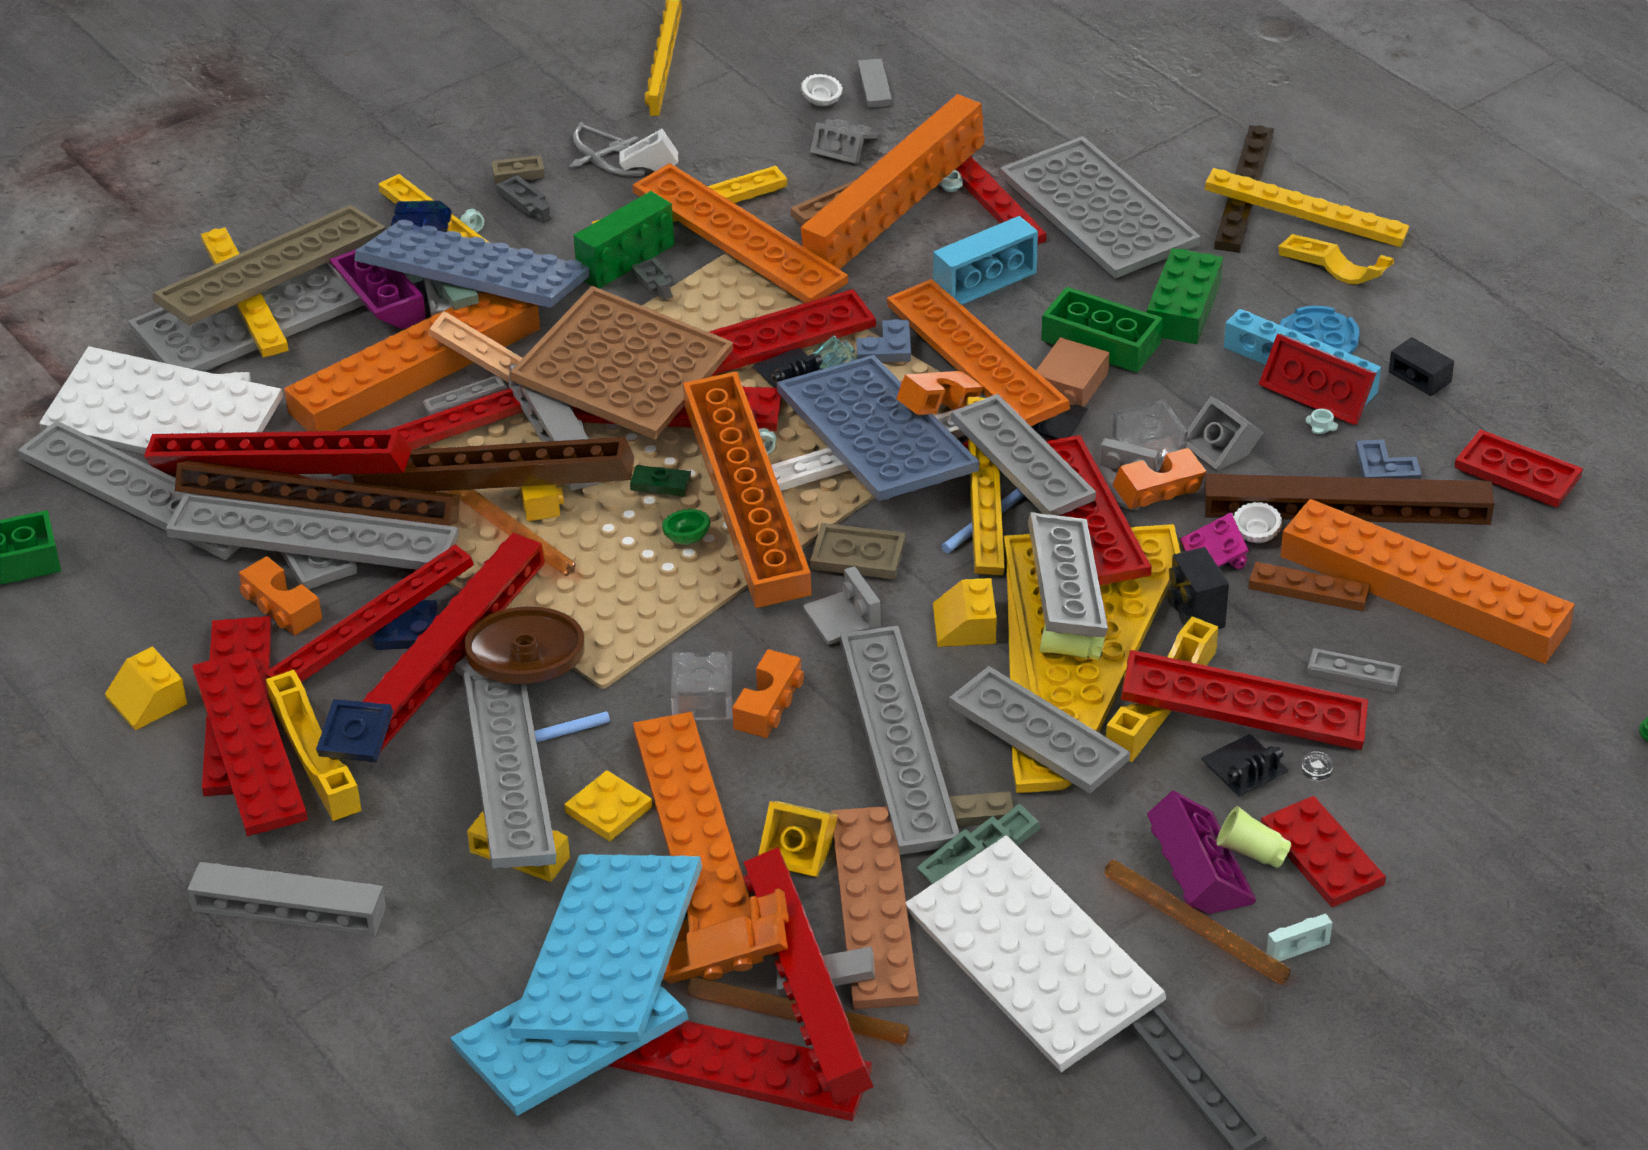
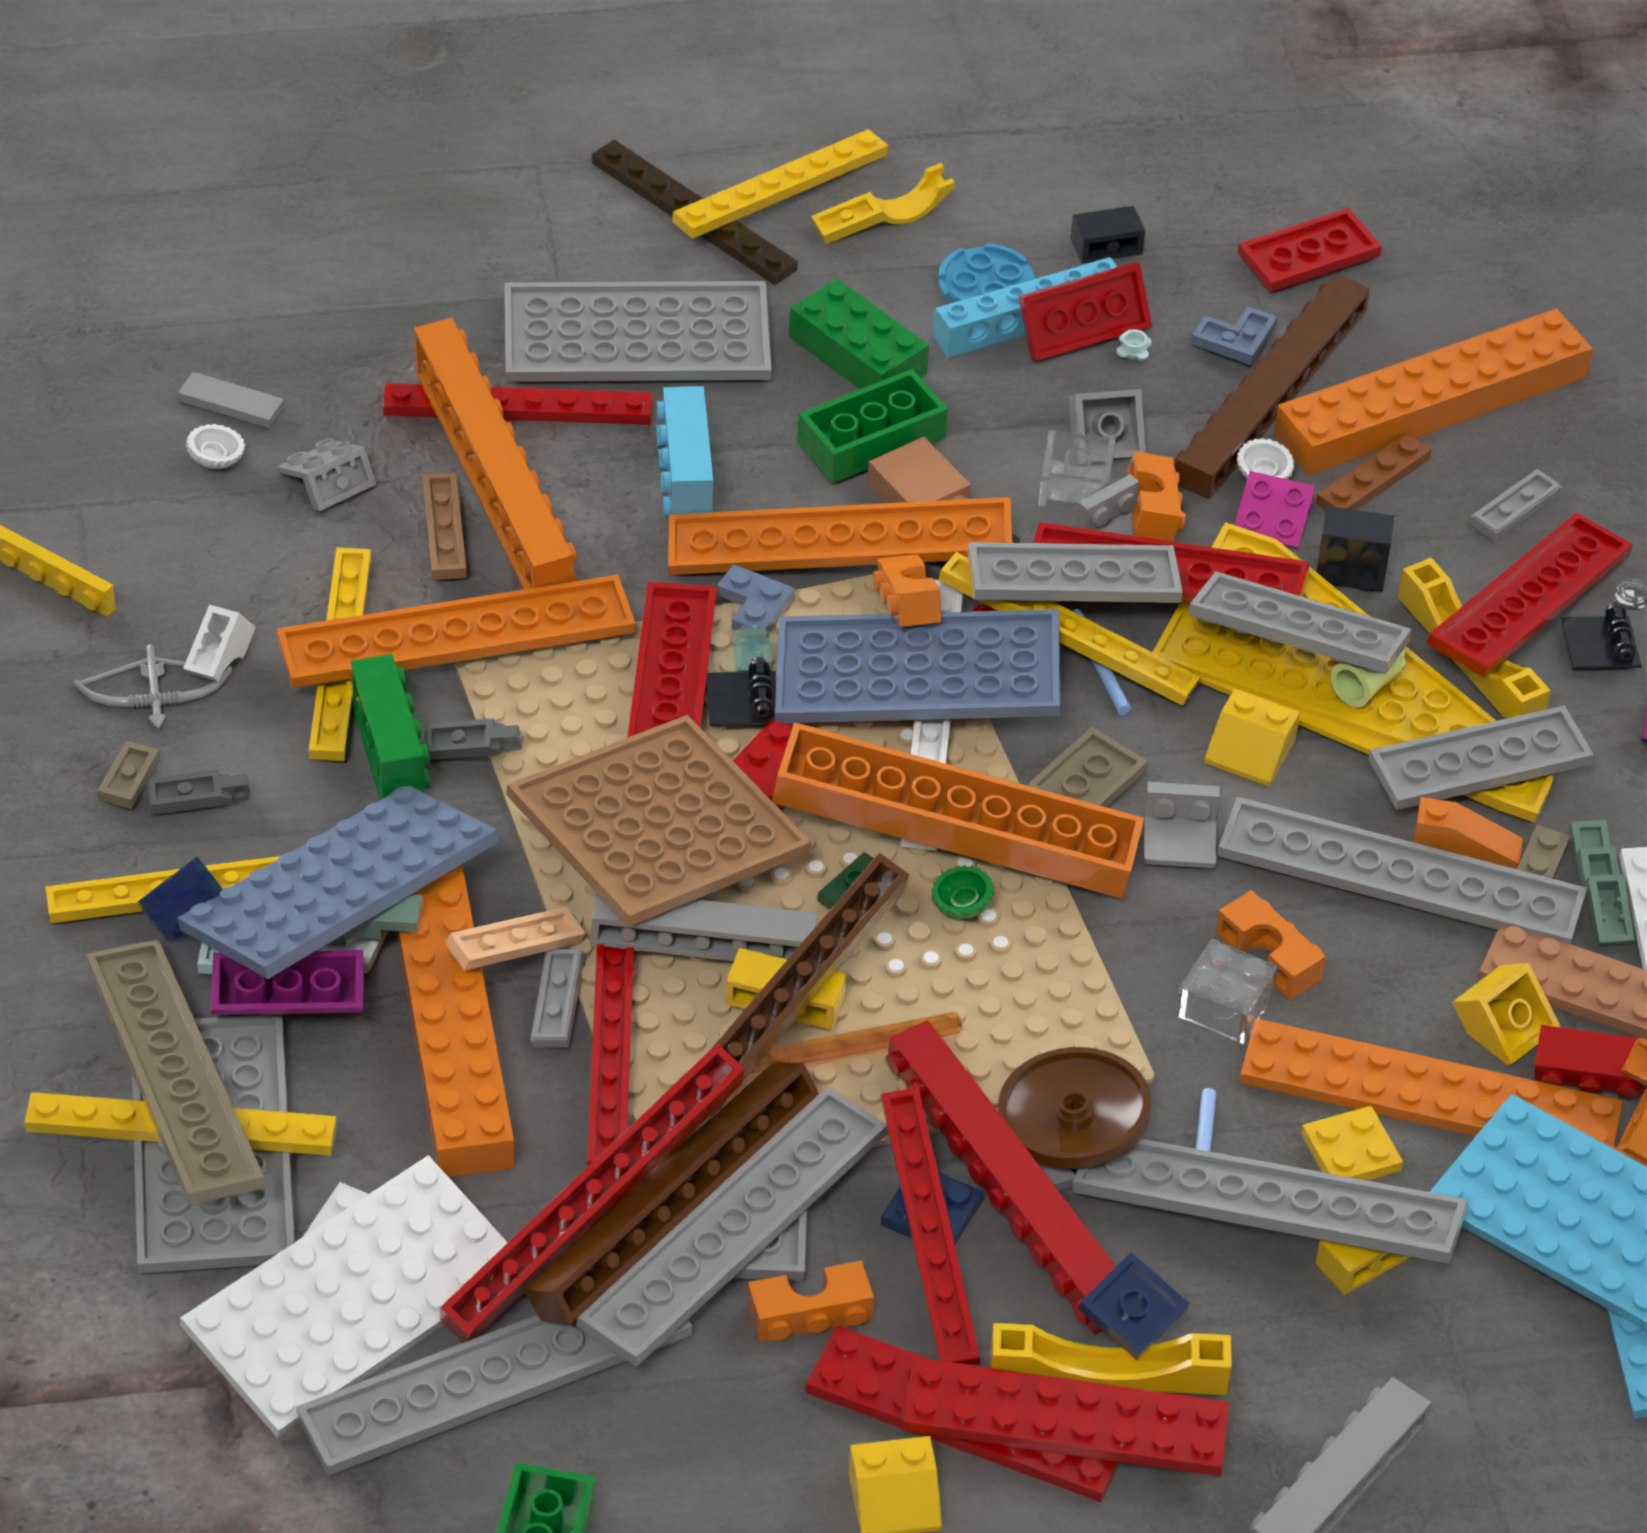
camera: 65 degrees left, 5 degrees up
(476, 218) = (201, 851): light aqua plate -> none
(962, 752) = (1466, 833): none -> orange slope

